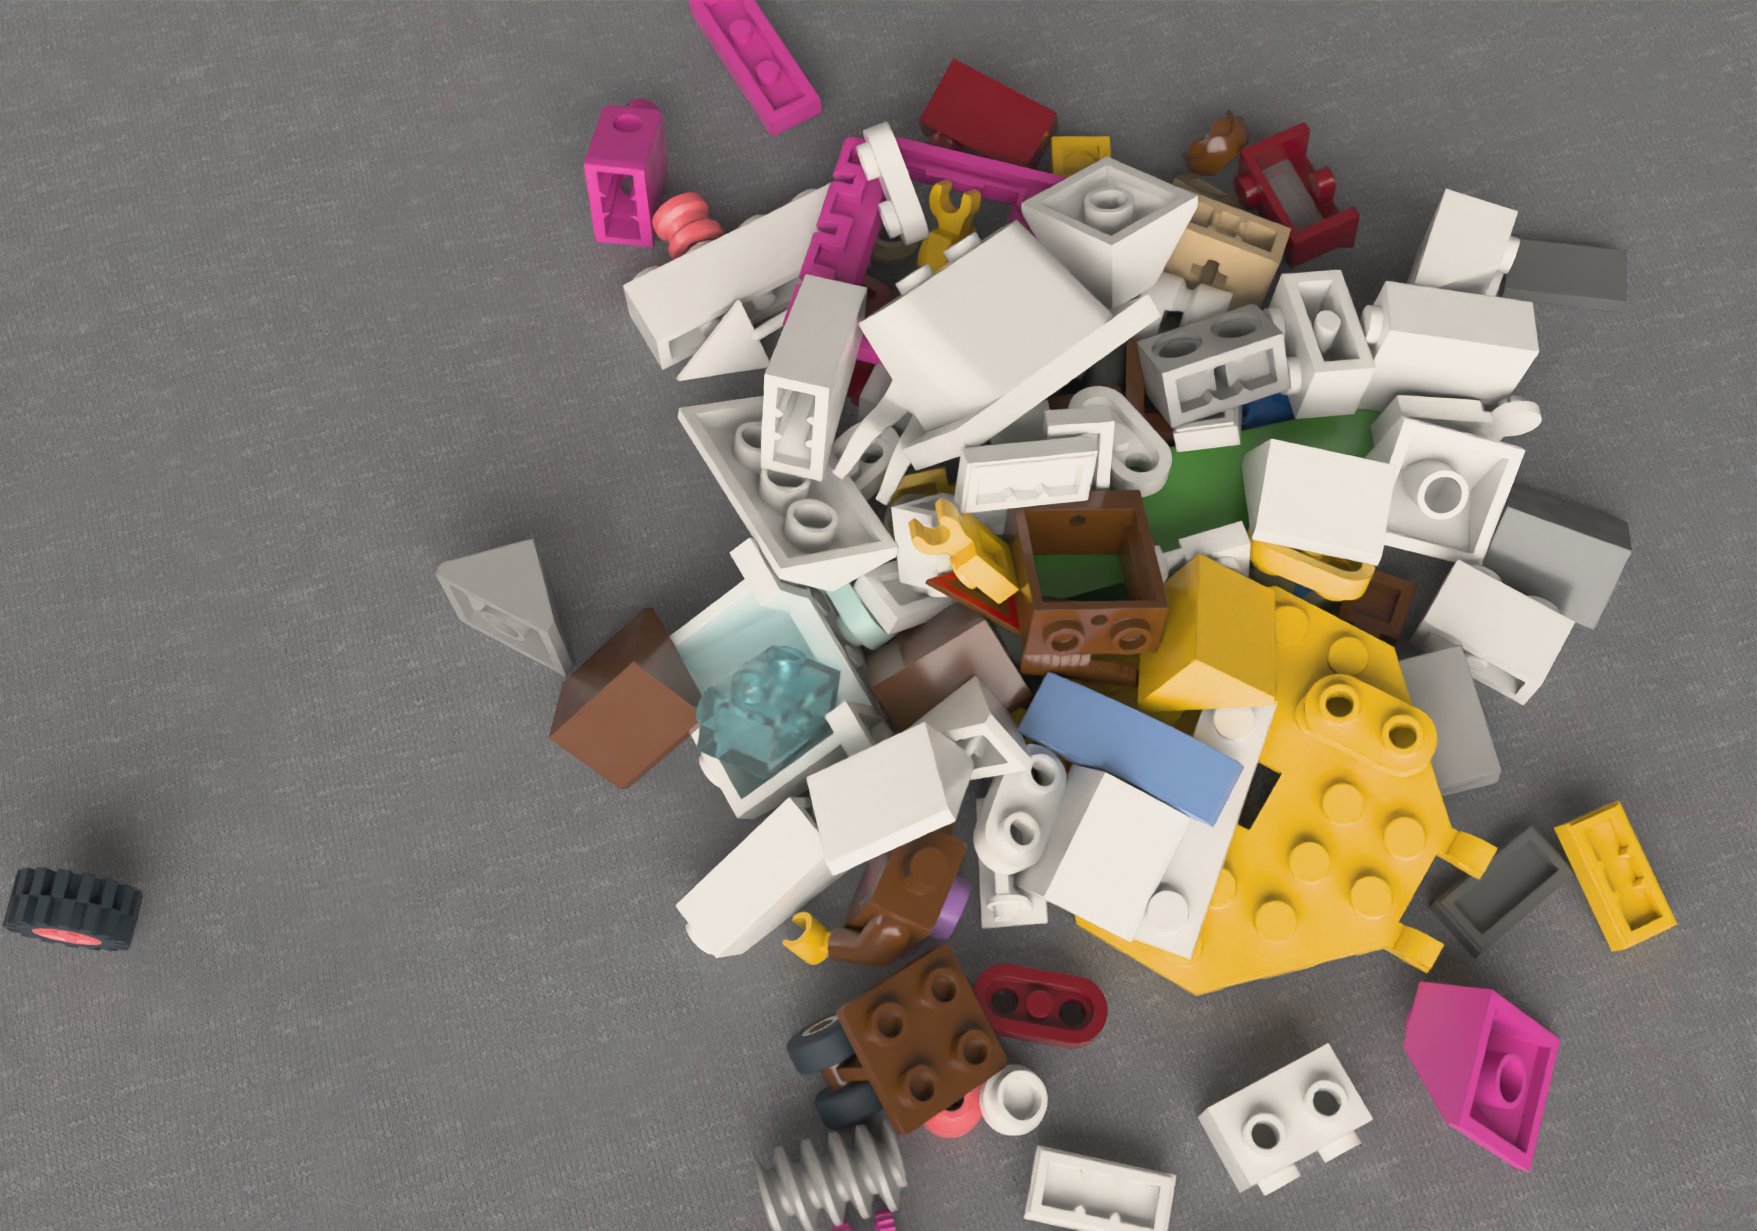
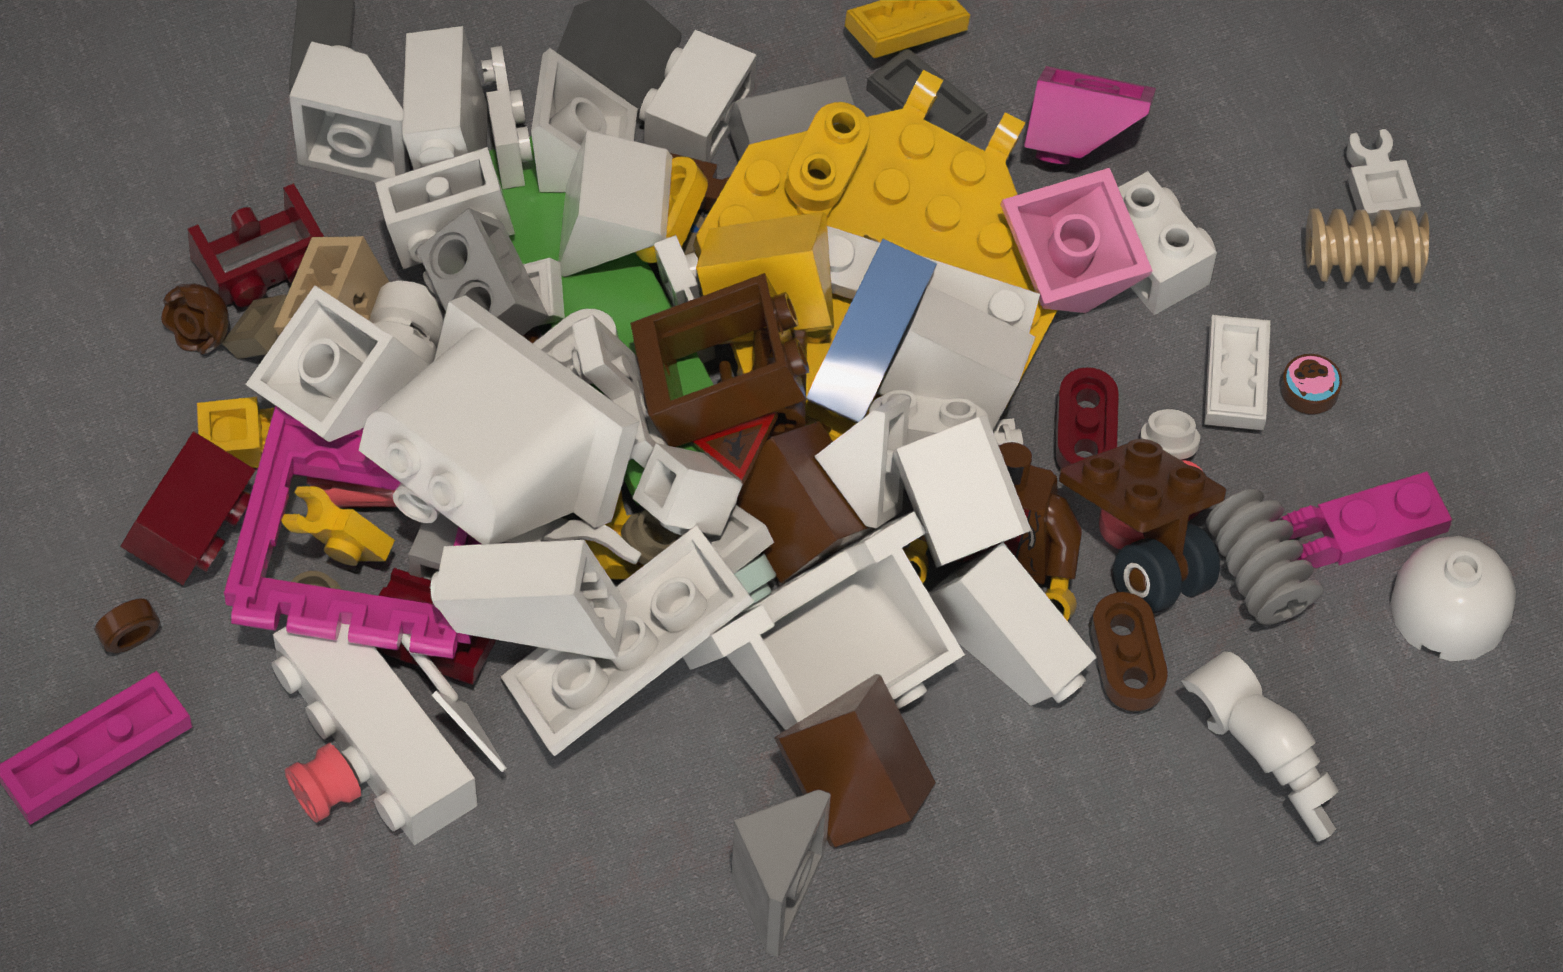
camera: 100 degrees left, 10 degrees down
(602, 1133) = (1267, 732): none -> white piece
(626, 144) = (259, 837): dark pink torso -> none
(741, 1005) = (1130, 655): none -> reddish brown plate
(767, 710) = (866, 625): clear light blue brick -> none
(874, 81) = (127, 626): none -> reddish brown tile
(883, 160) = (300, 553): white plate -> none
(977, 553) = (718, 441): yellow plate -> none
(1025, 474) = (643, 389): white plate -> none
(1266, 1009) = (1077, 241): none -> bright pink slope

